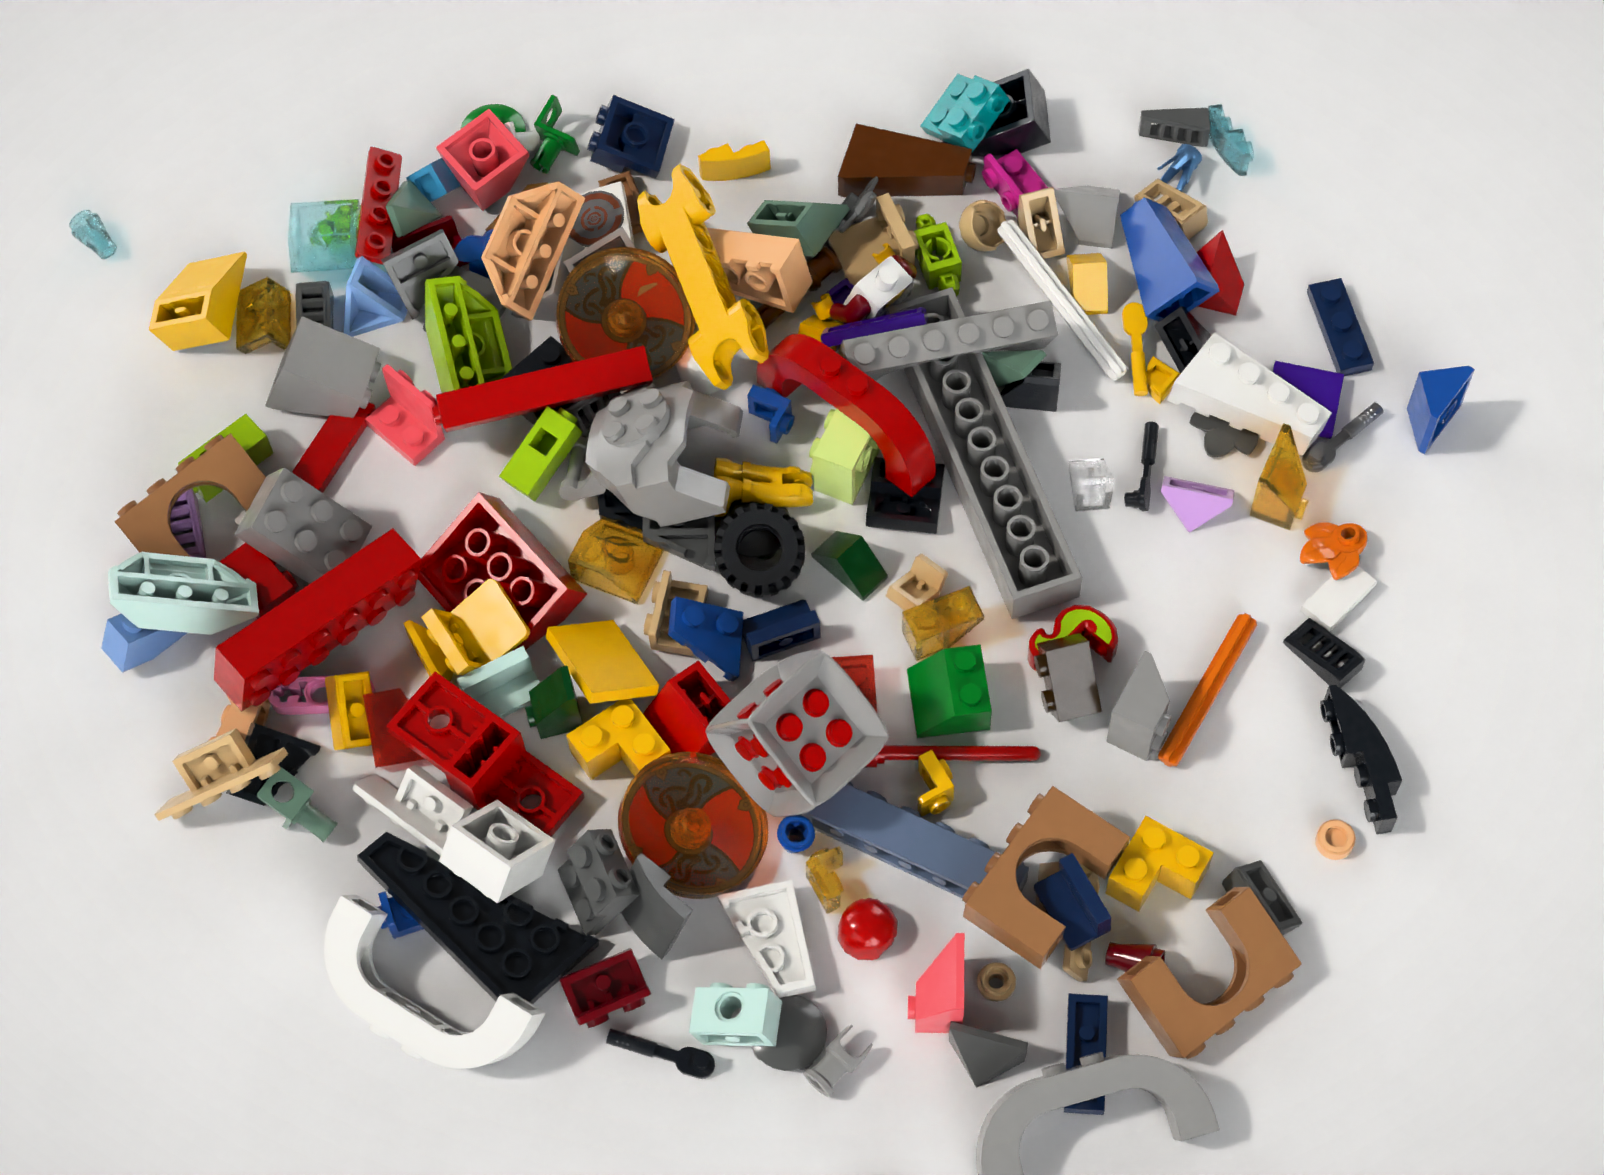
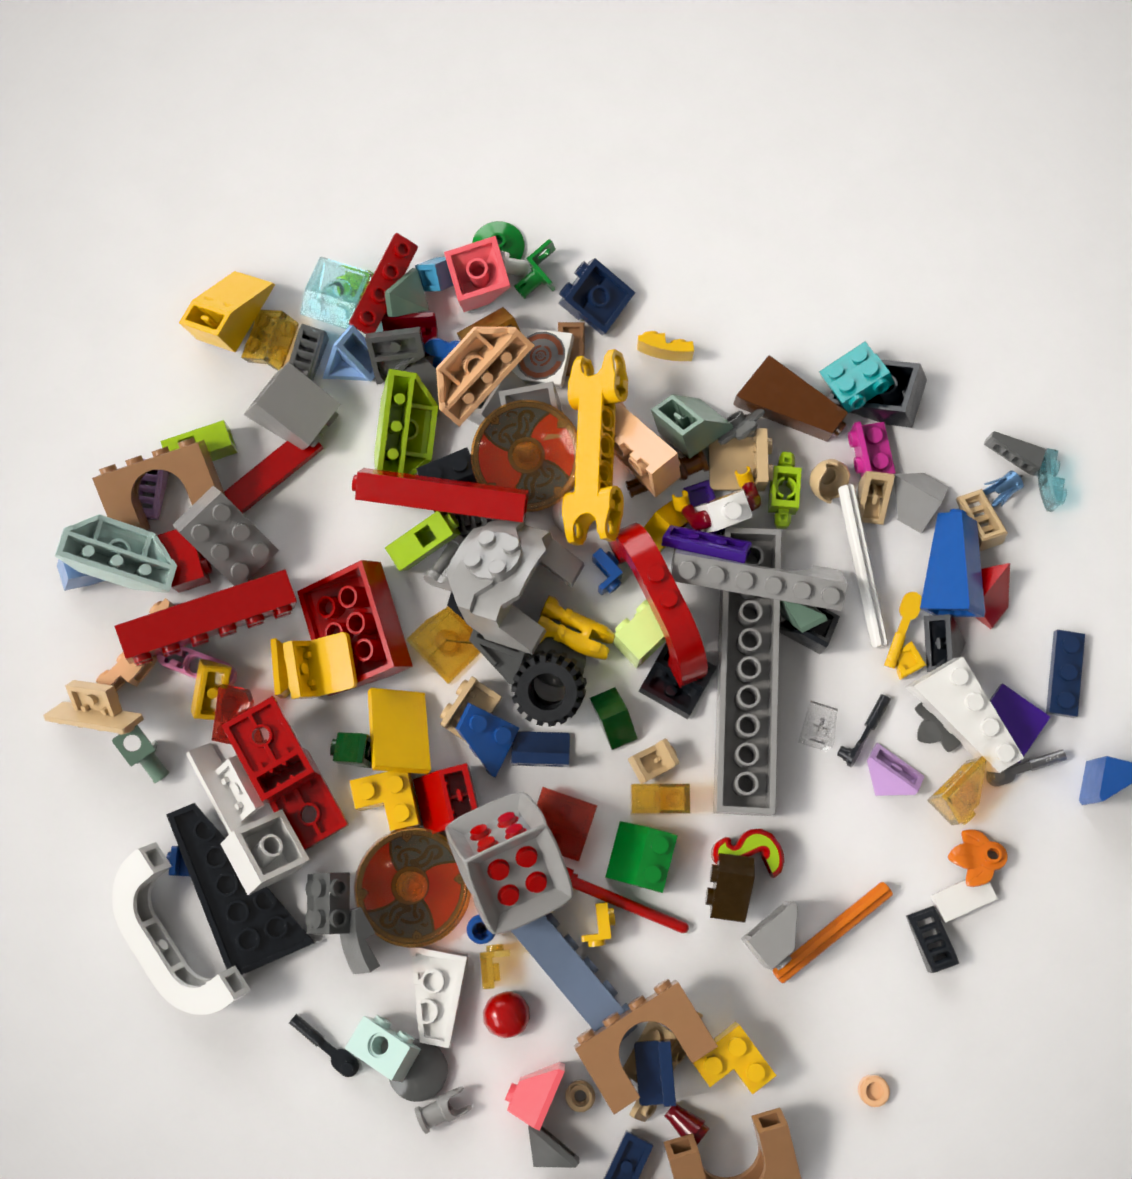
camera: 20 degrees right, 15 degrees up
(90, 231) = (174, 219): clear light blue cone -> none
(264, 741) = (145, 699): black wing -> none
(406, 418) = (337, 468): coral bracket -> none
(502, 683) = (324, 714): light aqua panel -> none
(605, 988) = (303, 985): dark red bracket -> none
(1089, 282) = (890, 556): yellow slope -> none
(1268, 893) = (800, 1113): dark grey slope -> none
(1363, 746) = (925, 1024): black slope -> none

